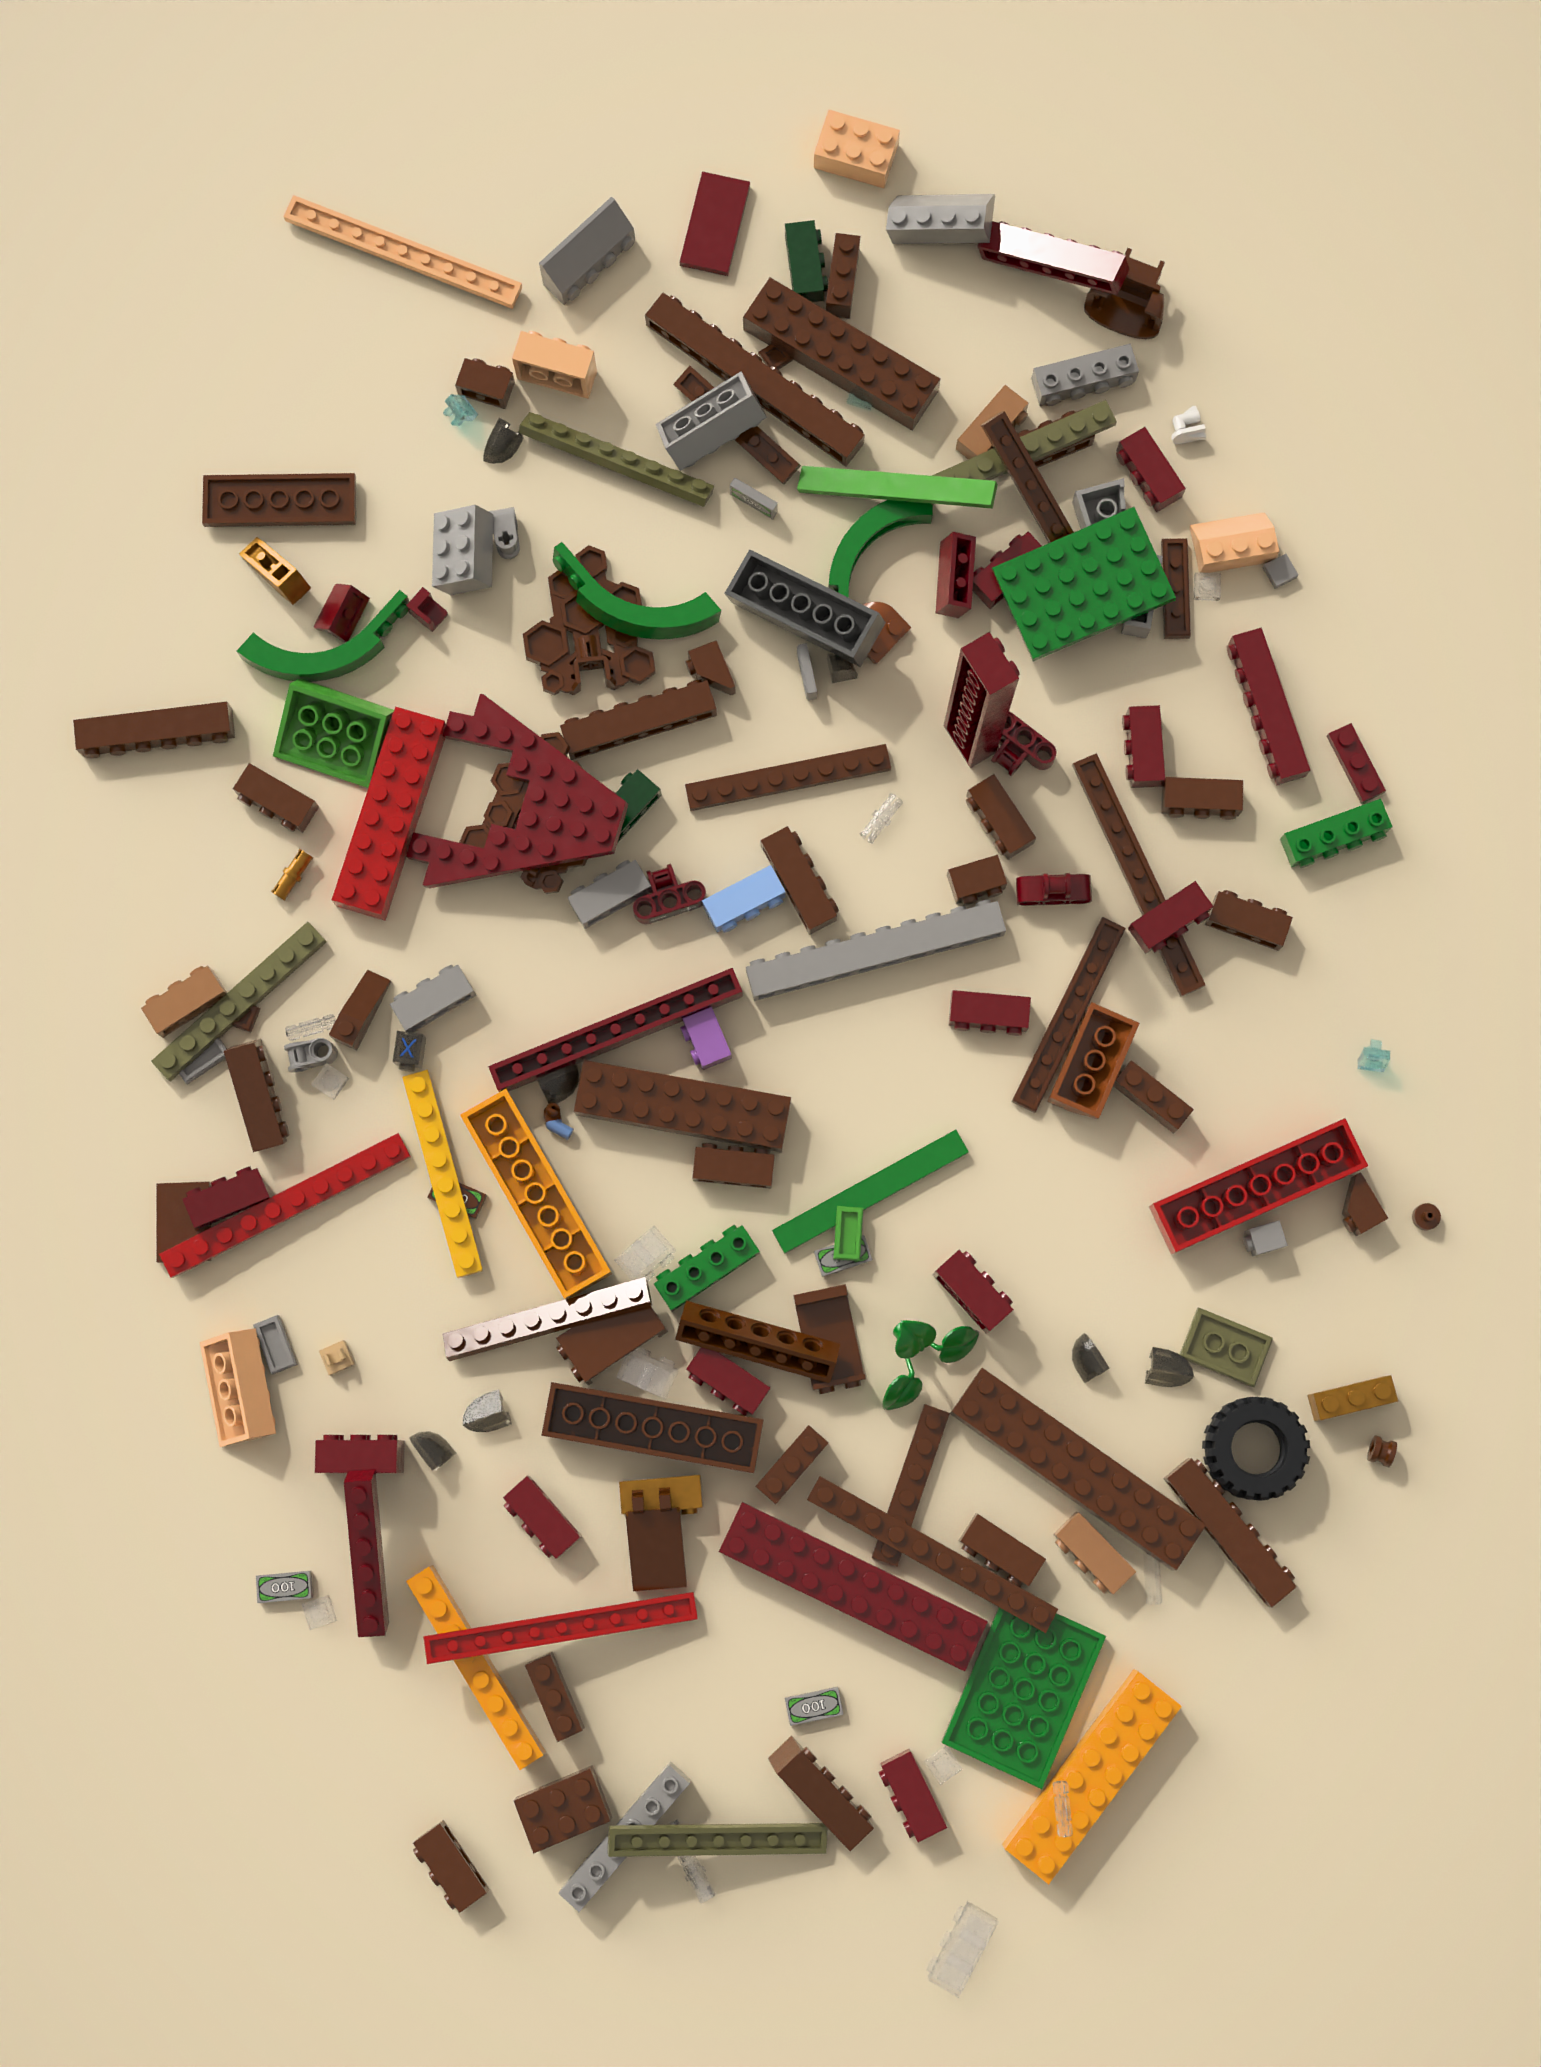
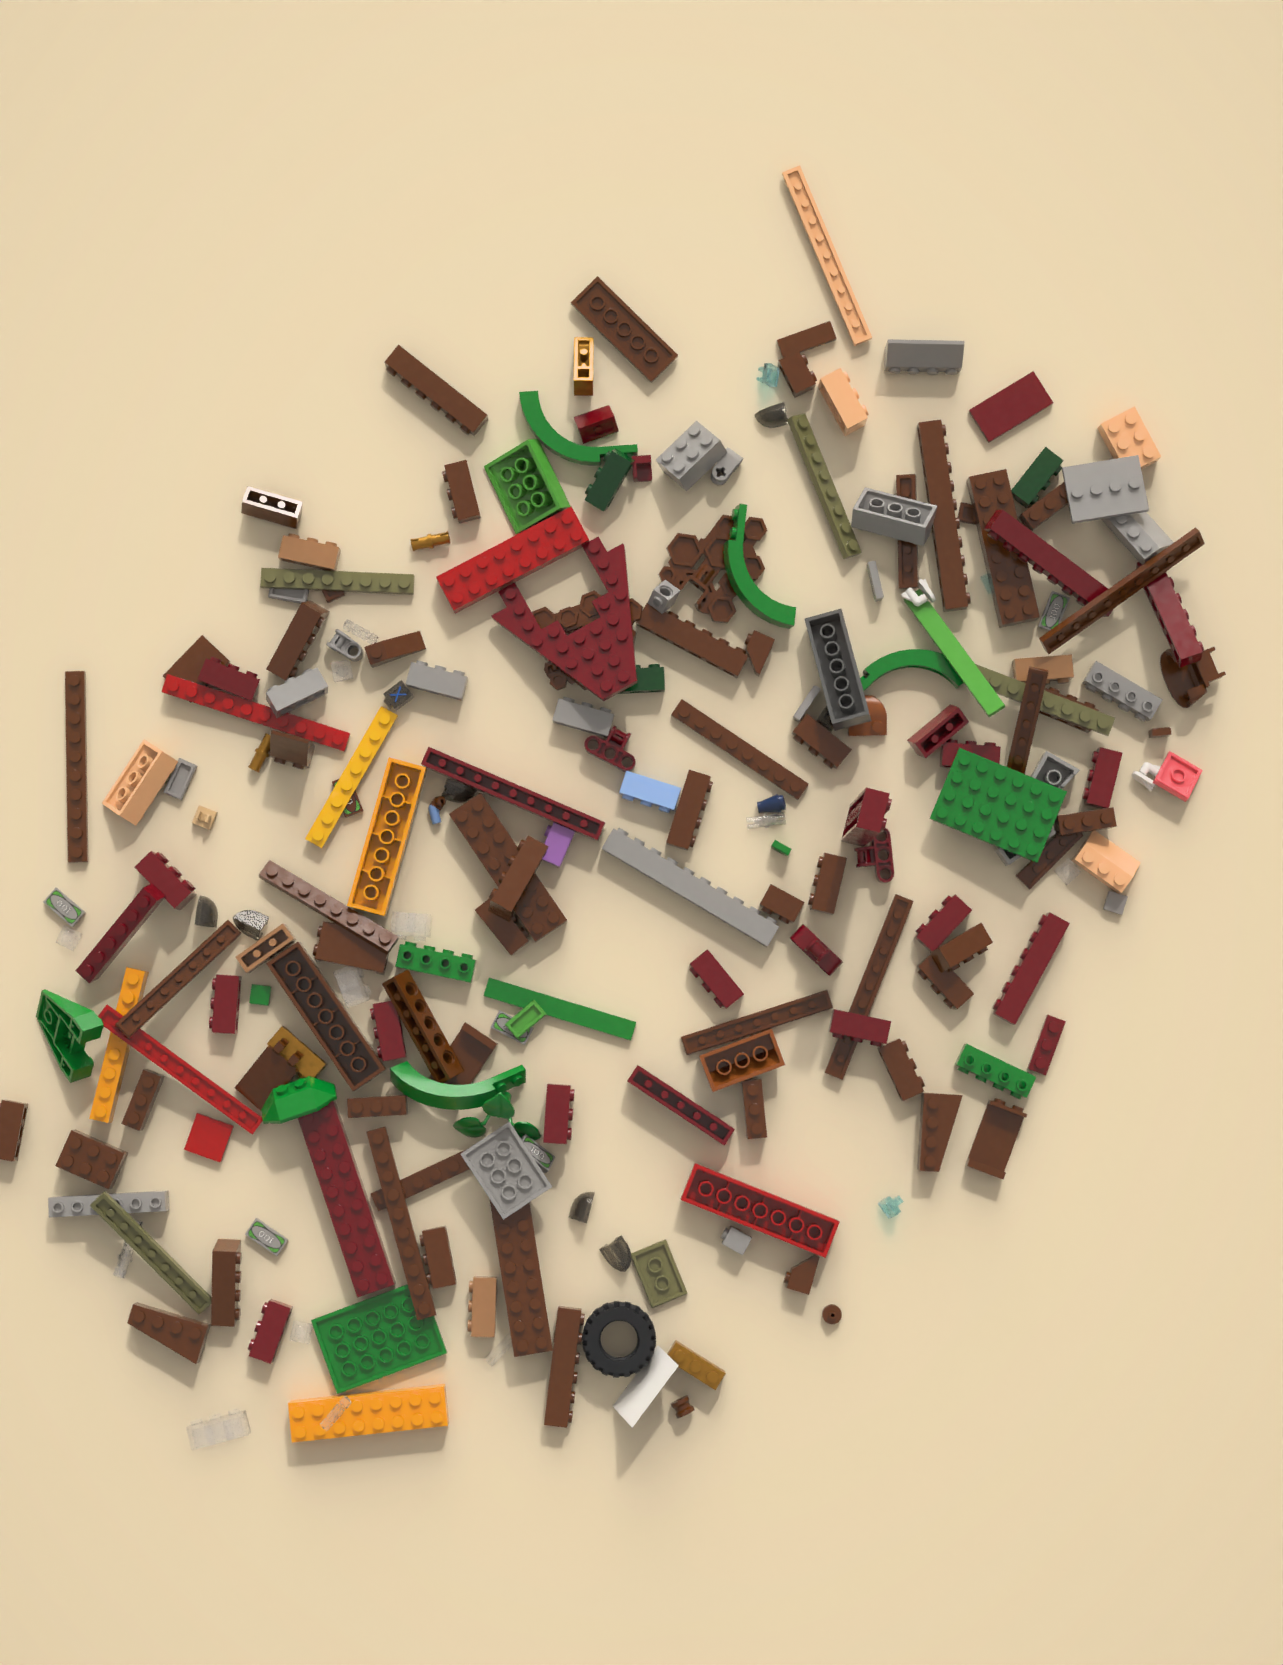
camera: 40 degrees right, 5 degrees up
(103, 993) = (271, 507): none -> reddish brown brick
(159, 1436) = (76, 766): none -> reddish brown plate
(305, 1144) = (296, 692): none -> light grey brick
(330, 1237) = (261, 754): none -> pearl gold pin
(355, 1203) = (291, 749): none -> reddish brown slope
(405, 648) = (608, 479): none -> dark green brick
(409, 1705) = (67, 1031): none -> green wedge
(462, 344) = (807, 339): none -> reddish brown tile
(469, 1541) = (178, 979): none -> reddish brown tile
(526, 1422) = (265, 948): none -> medium nougat brick
(566, 1474) = (260, 994): none -> green tile
(570, 704) = (663, 596): none -> light grey brick
(657, 1667) = (209, 1137): none -> red tile
(704, 1102) = (517, 877): none -> reddish brown wedge
(708, 1538) = (297, 1099): none -> green wedge
(815, 461) = (917, 600): none -> white piece
(817, 1896) = (174, 1331): none -> reddish brown wedge
(853, 1380) = (453, 1096): none -> green arch
(857, 693) = (821, 742): none -> reddish brown brick
(872, 796) = (772, 804): none -> dark blue cone
(880, 204) = (1105, 489): none -> light grey plate
(901, 318) = (1044, 558): none -> dark red brick
(922, 828) = (781, 848): none -> green tile
(947, 366) = (1053, 611): none -> light grey tile
(982, 1395) = (506, 1170): none -> light grey plate
(990, 1353) = (541, 1156): none -> light grey tile
(991, 280) = (1122, 590): none -> reddish brown plate
(1080, 1163) = (680, 1105): none -> dark red brick
(1158, 377) = (1159, 732): none -> reddish brown tile
(1178, 520) = (1084, 822): none -> reddish brown brick
(1188, 749) = (962, 948): none -> reddish brown brick
(1216, 400) = (1177, 776): none -> coral tile
(1331, 1468) = (645, 1387): none -> white sticker
(1338, 942) = (936, 1125): none -> reddish brown wedge
(1401, 895) = (995, 1138): none -> reddish brown panel

